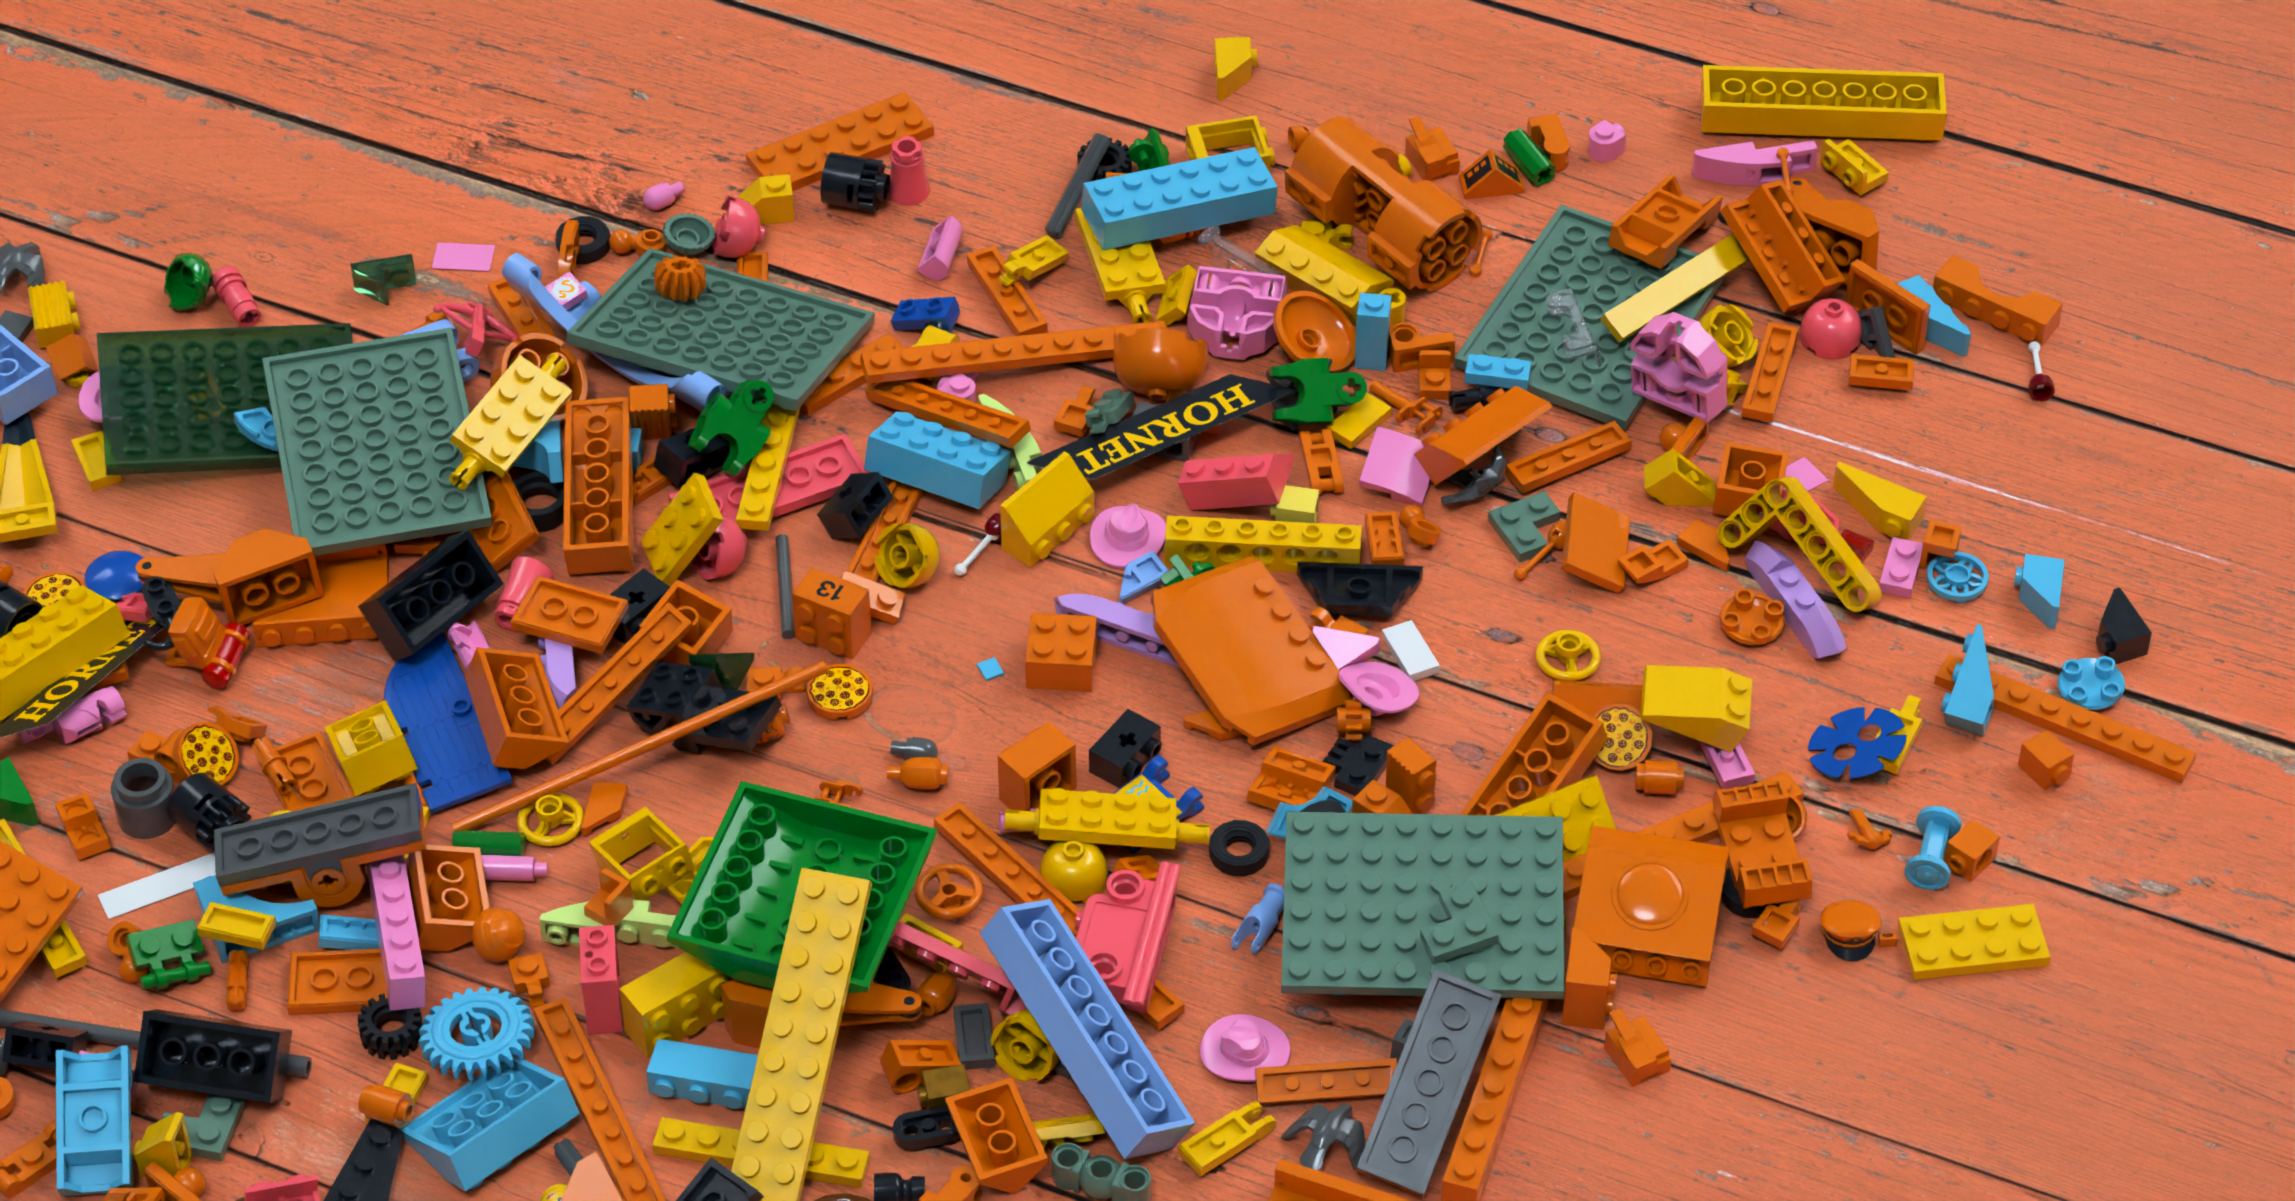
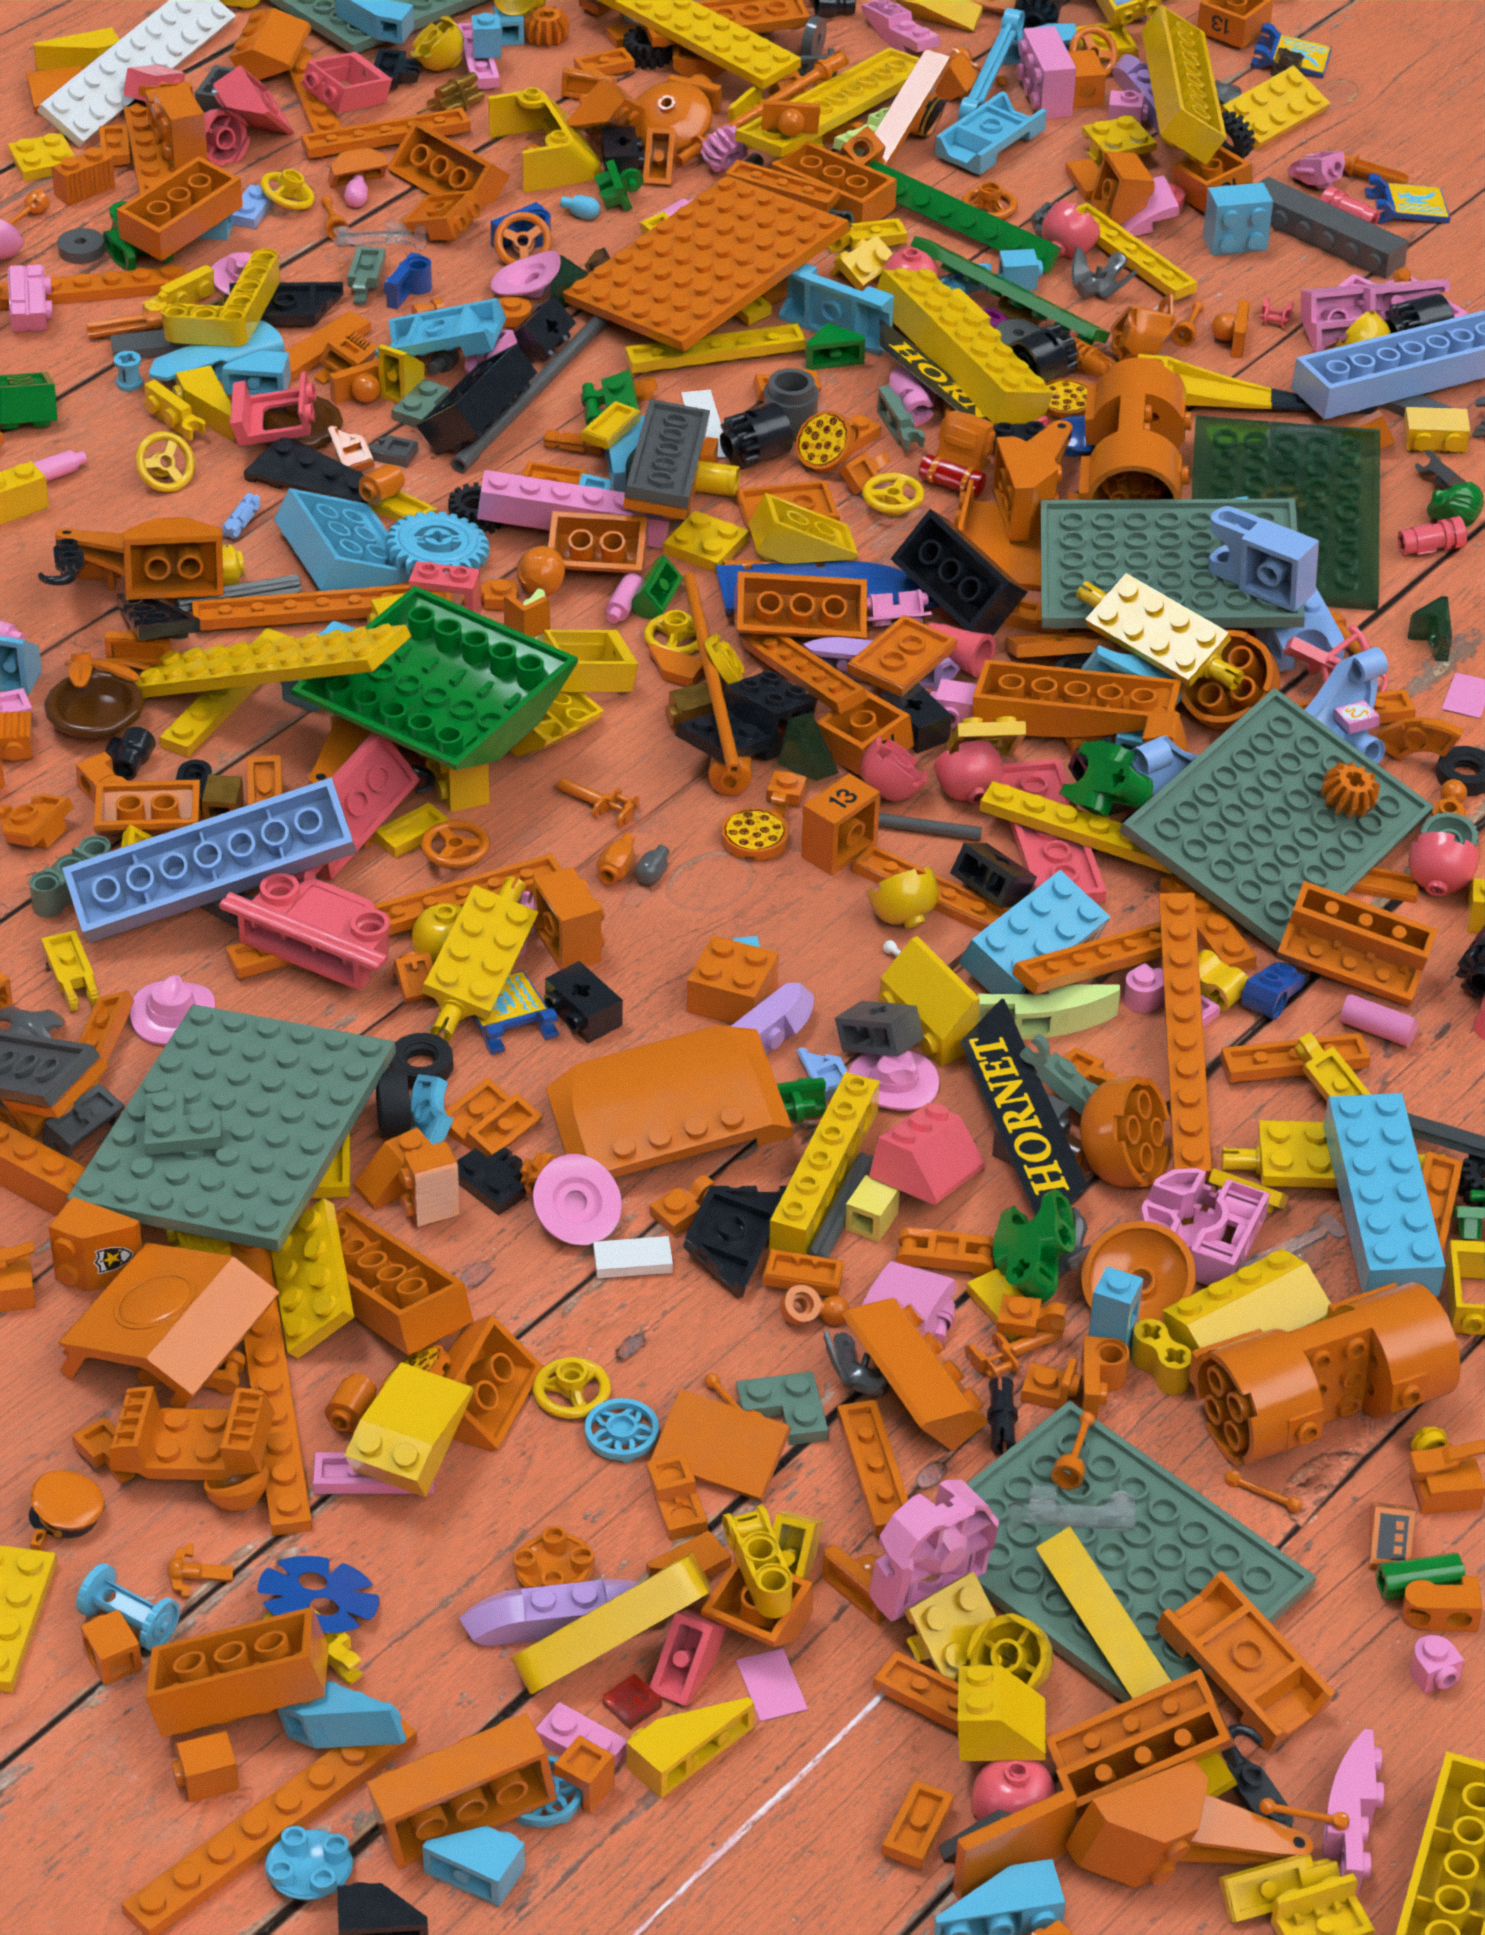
camera: 105 degrees right, 5 degrees down
(130, 300) = (1445, 476): none -> dark grey plate
(136, 716) = (897, 419): none -> sand green plate
(139, 504) = (1137, 428): none -> orange cylinder
(274, 765) = (797, 476): orange axle -> none
(278, 692) = (891, 499): none -> yellow piece
(291, 1139) = (394, 450): none -> dark grey tile
(317, 1159) = (351, 449): none -> tile
(404, 341) = (1264, 558): none -> light blue brick
(607, 573) = (956, 699): none -> bright pink brick
(613, 744) = (724, 659): none -> yellow tile
(678, 769) = (688, 703): none -> pearl gold brick
(744, 594) = (891, 771): none -> coral cylinder
(873, 260) = (1356, 943): none -> orange brick
(884, 601) = (864, 866): plate -> none
(1093, 534) = (879, 1028): none -> dark grey brick
(1346, 647) = (645, 1182): slope -> none
(1380, 396) = (1025, 1315): none -> orange plate
(1497, 371) = (1022, 1423): medium azure plate -> none
(1531, 337) = (1070, 1461): none -> orange hinge
(1598, 614) = (621, 1429): none -> medium azure wheel
(1731, 460) = (760, 1561): none -> yellow piece
(1795, 328) = (999, 1716): none -> yellow slope
(1829, 185) = (1255, 1889): none -> yellow hinge
(1977, 741) = (237, 1672): none -> orange brick
(2006, 591) = (462, 1788): none -> orange brick

